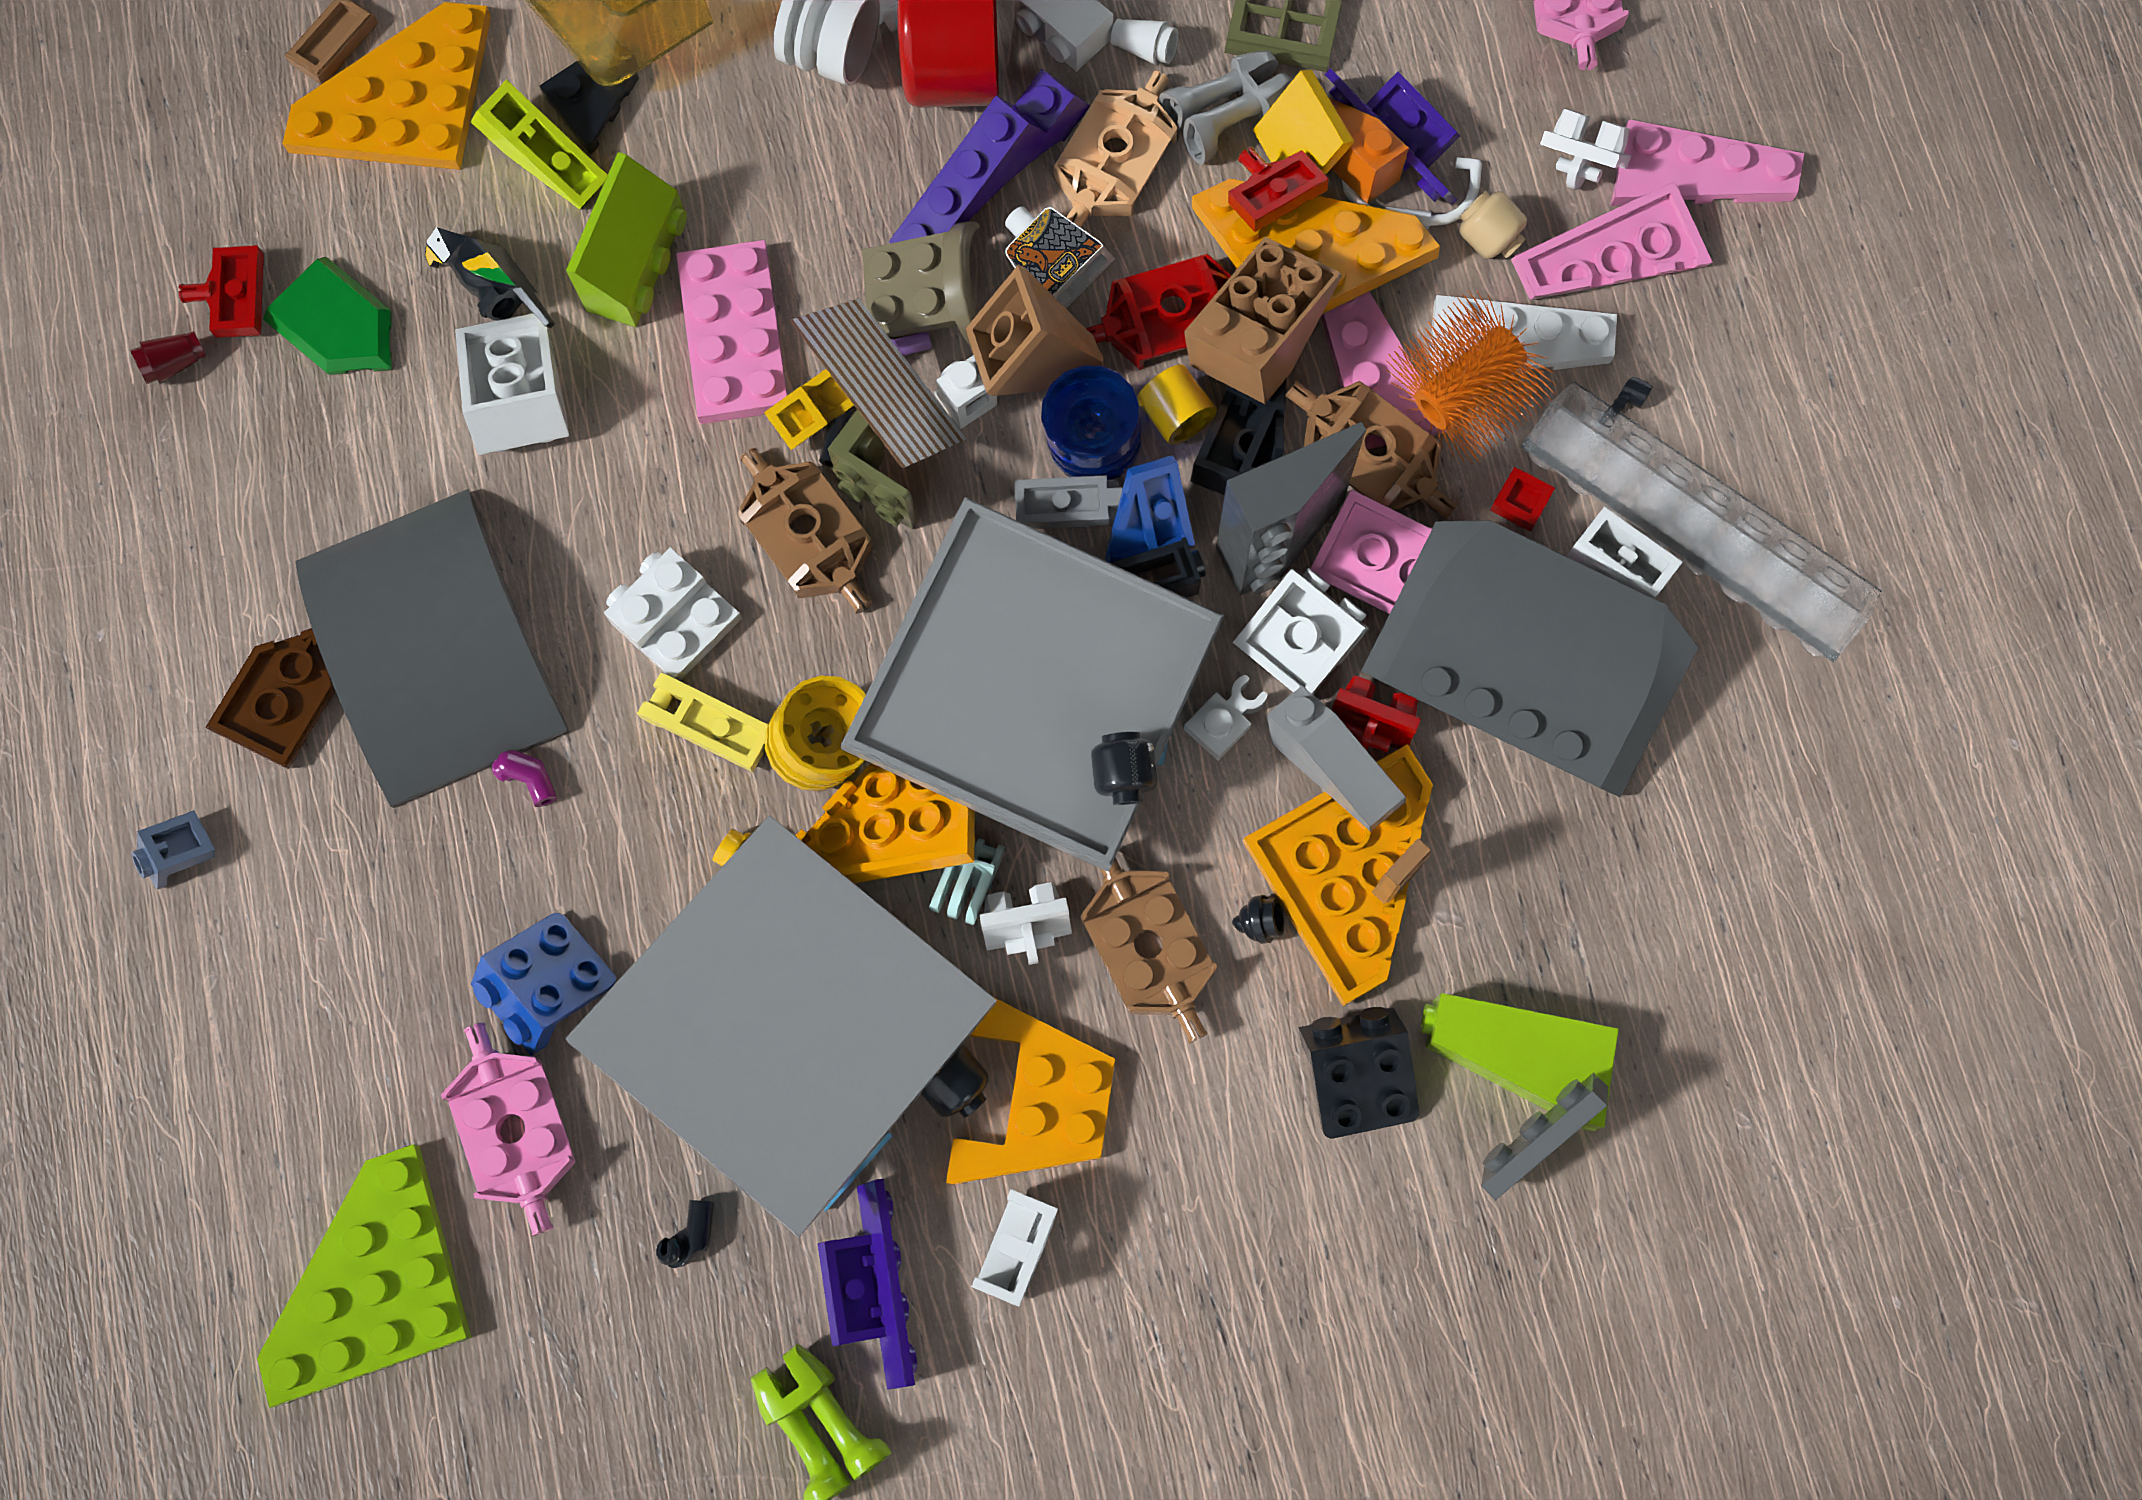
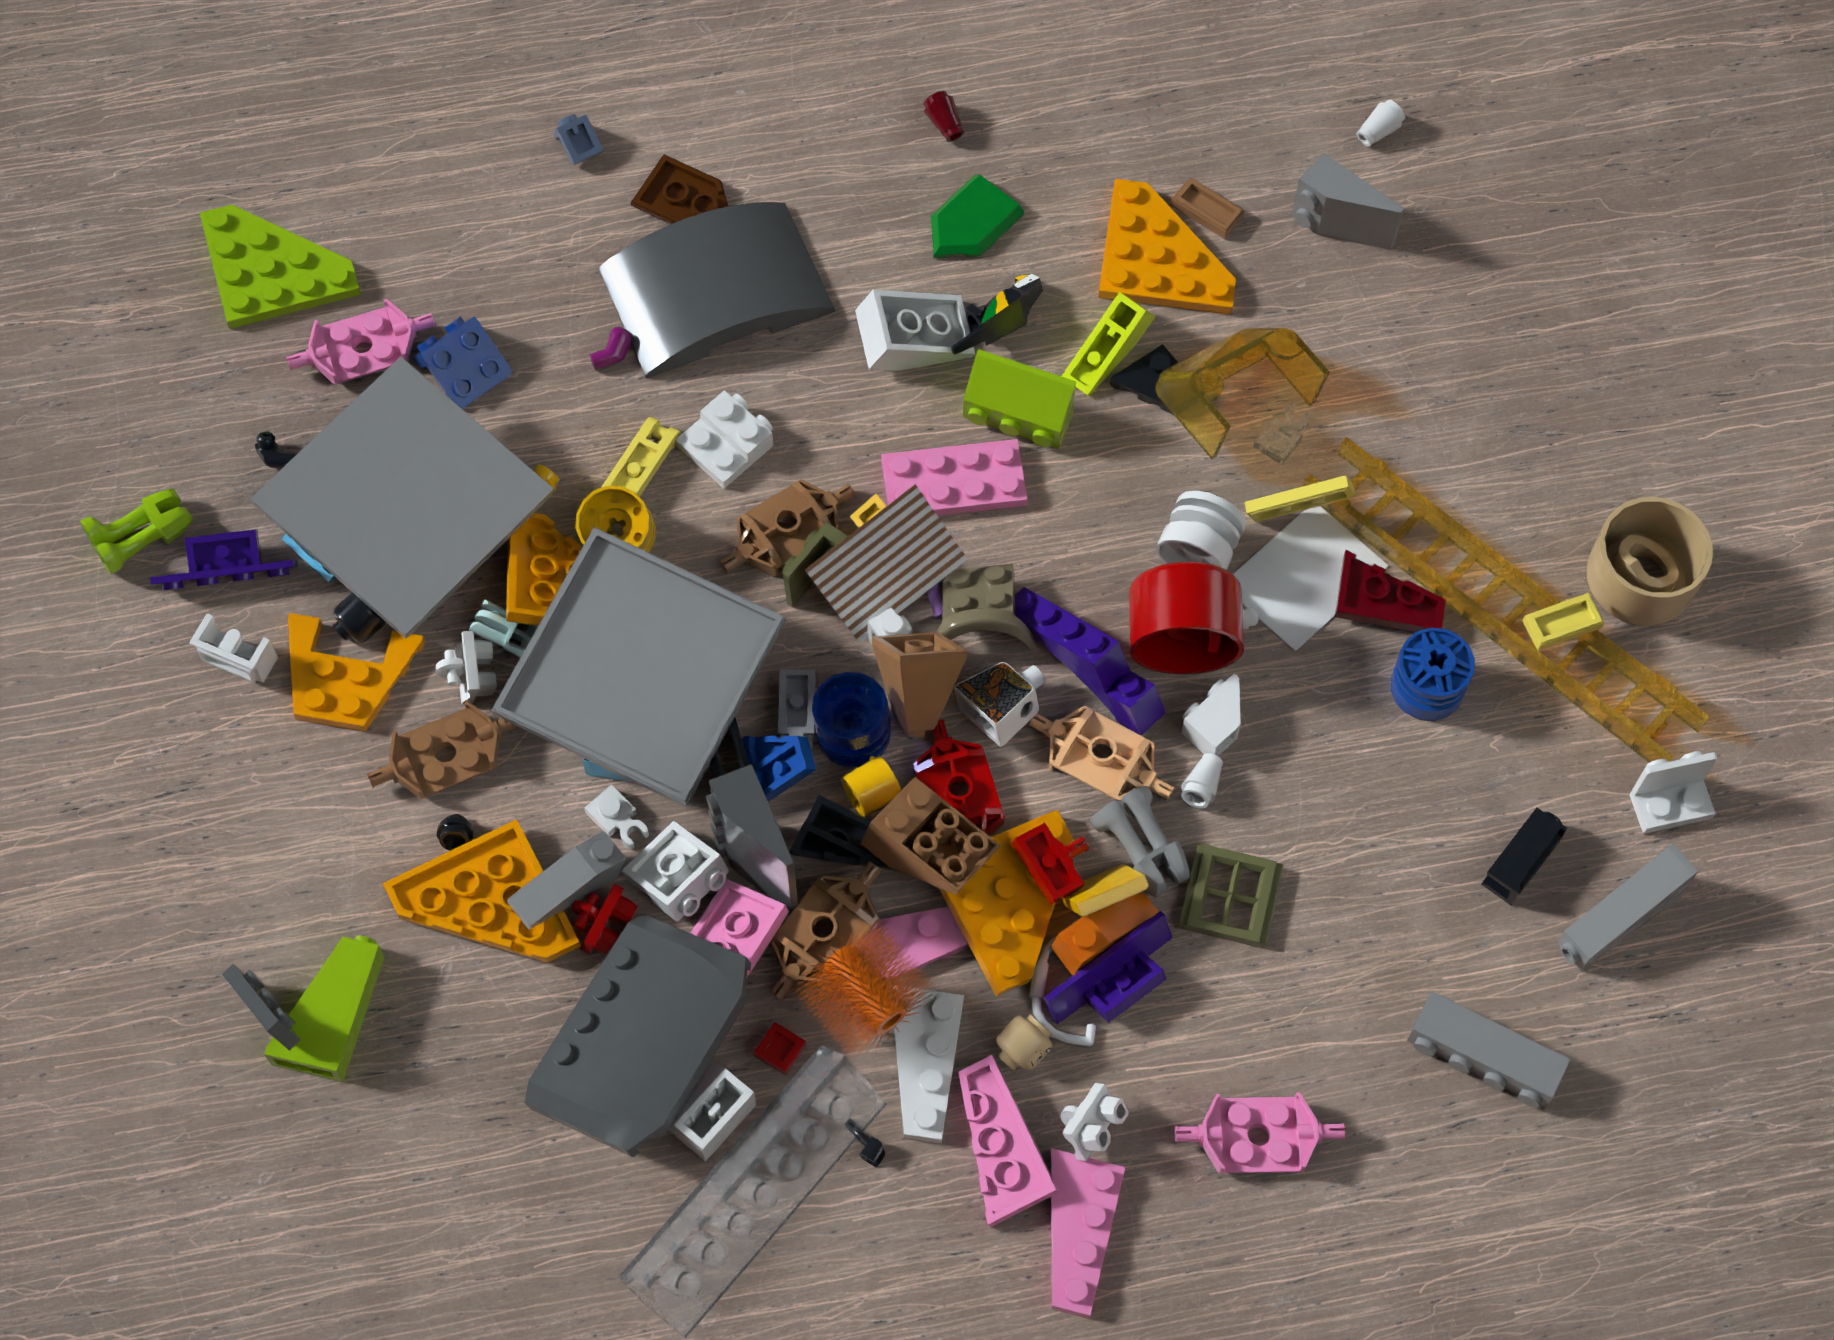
camera: 90 degrees right, 10 degrees down
(231, 291) = (994, 153): red plate -> none
(1124, 767) = (560, 716): black head -> none
(1361, 1071) = (334, 890): black bracket -> none
(1402, 871) = (466, 911): medium nougat tile -> none

